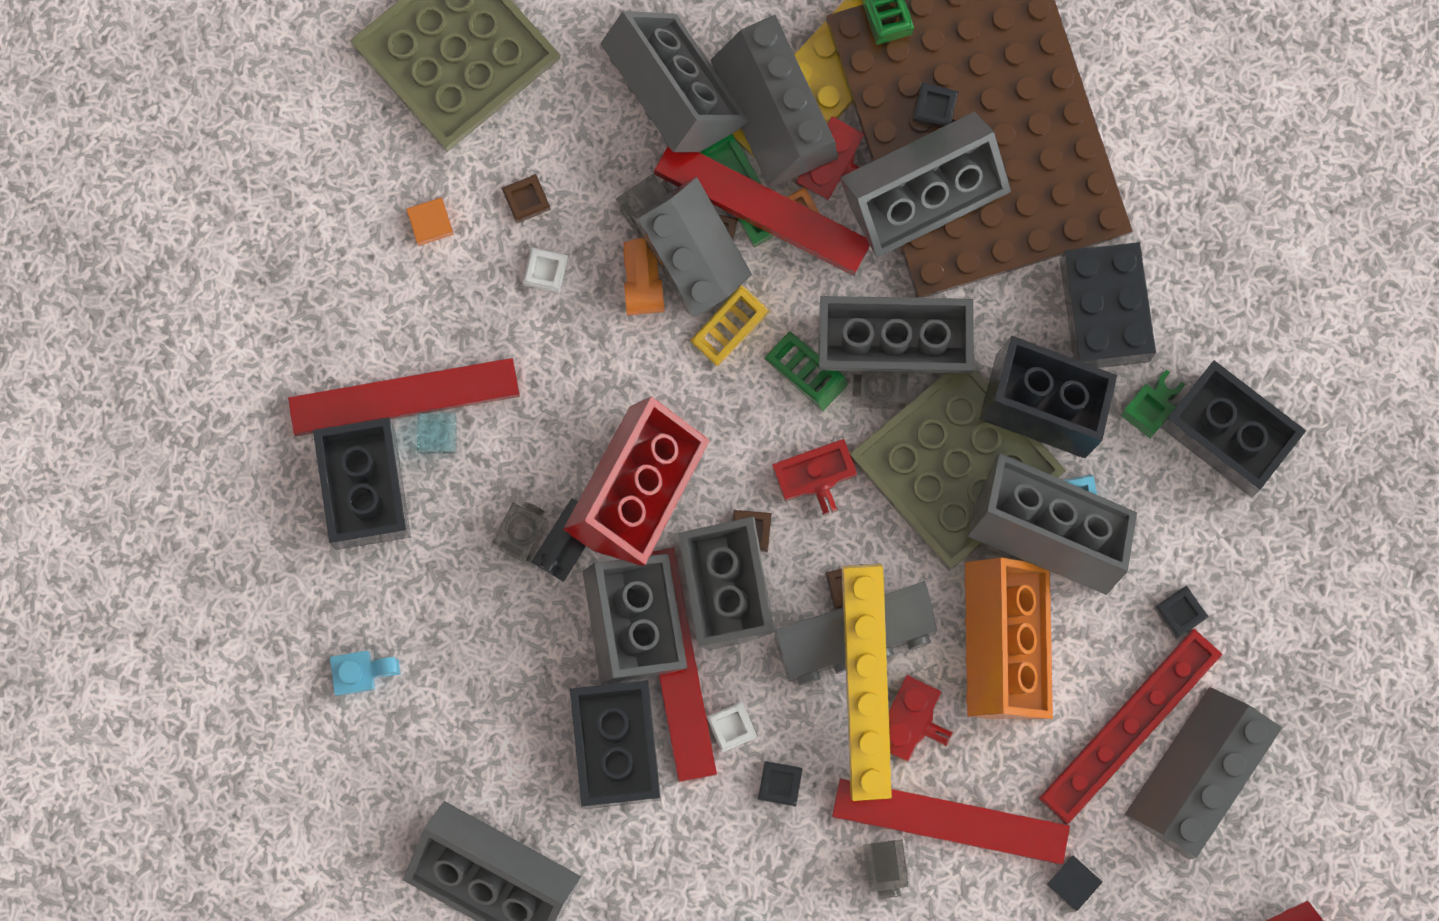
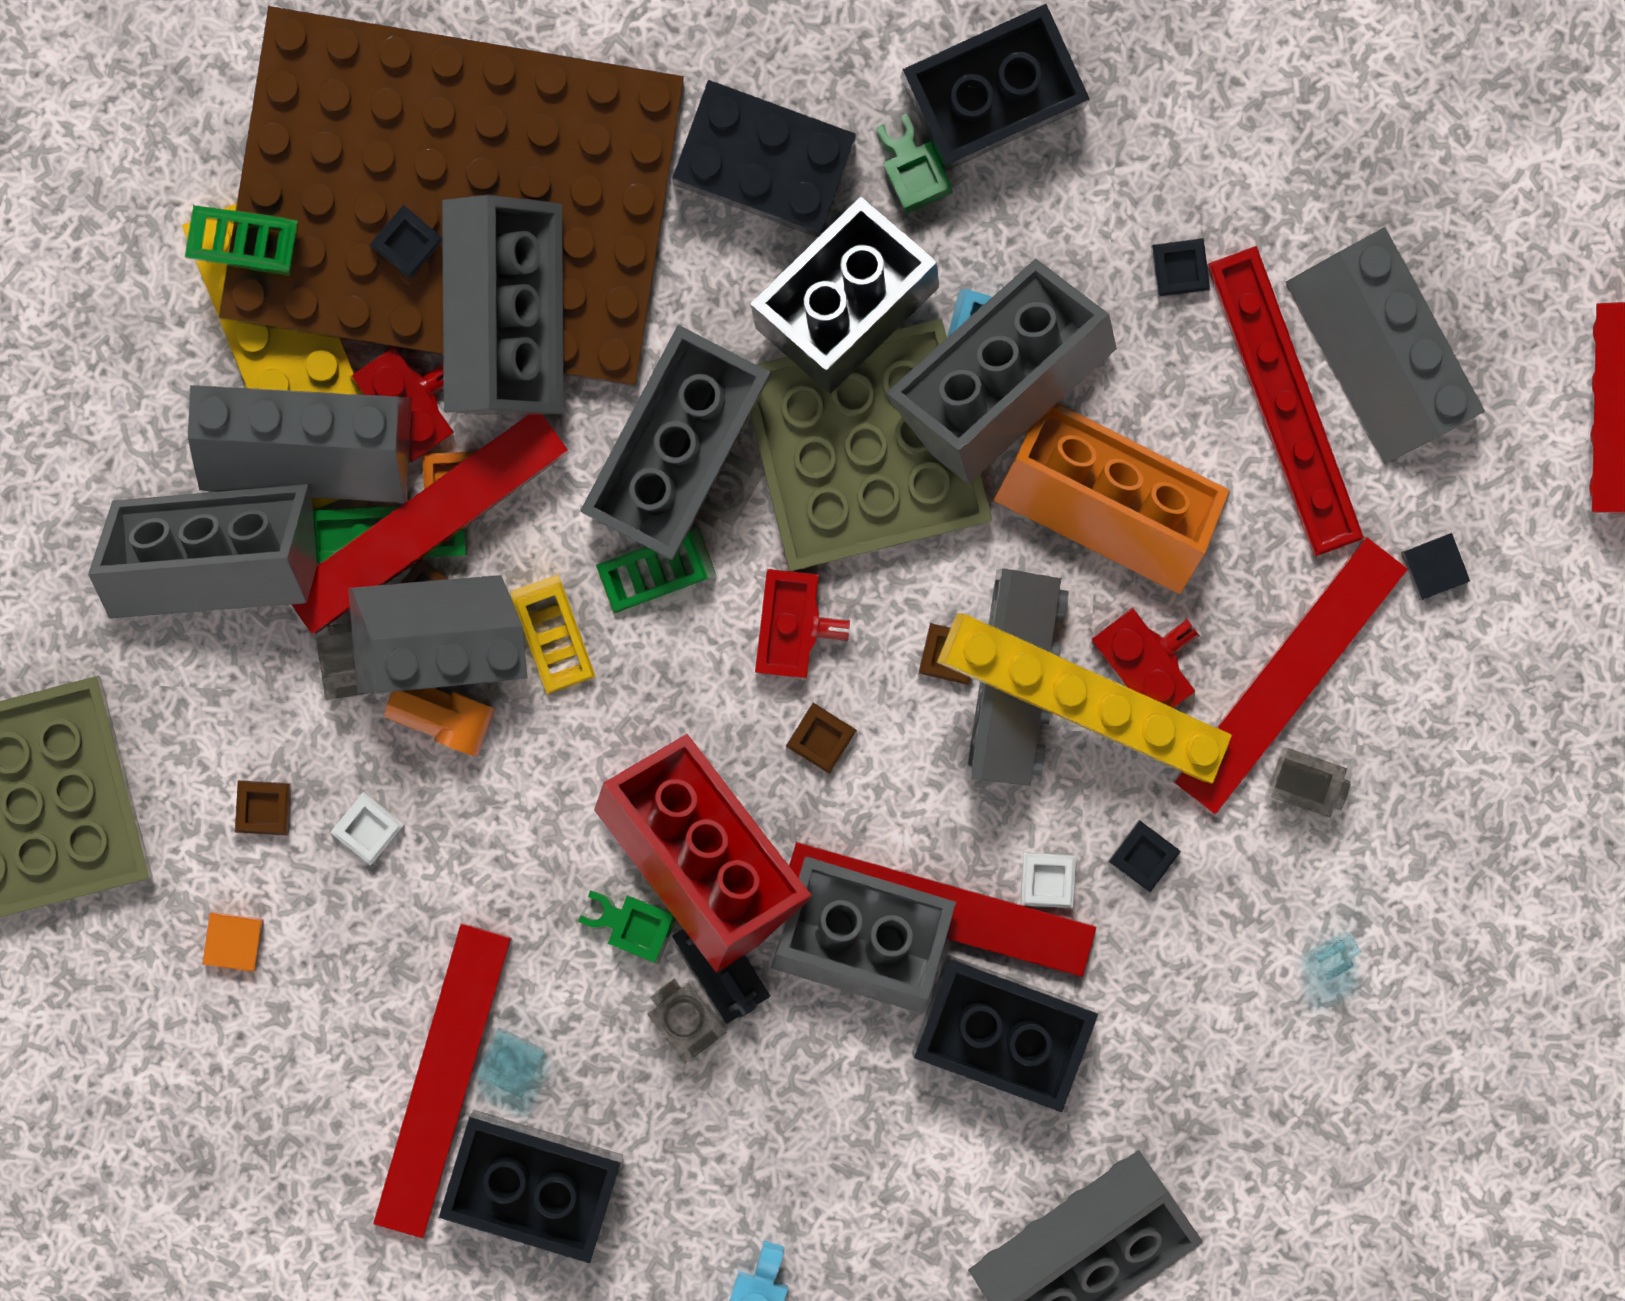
camera: 60 degrees left, 10 degrees up
(566, 470) = (636, 927): none -> green plate
(726, 584) = (878, 805): dark grey slope -> none

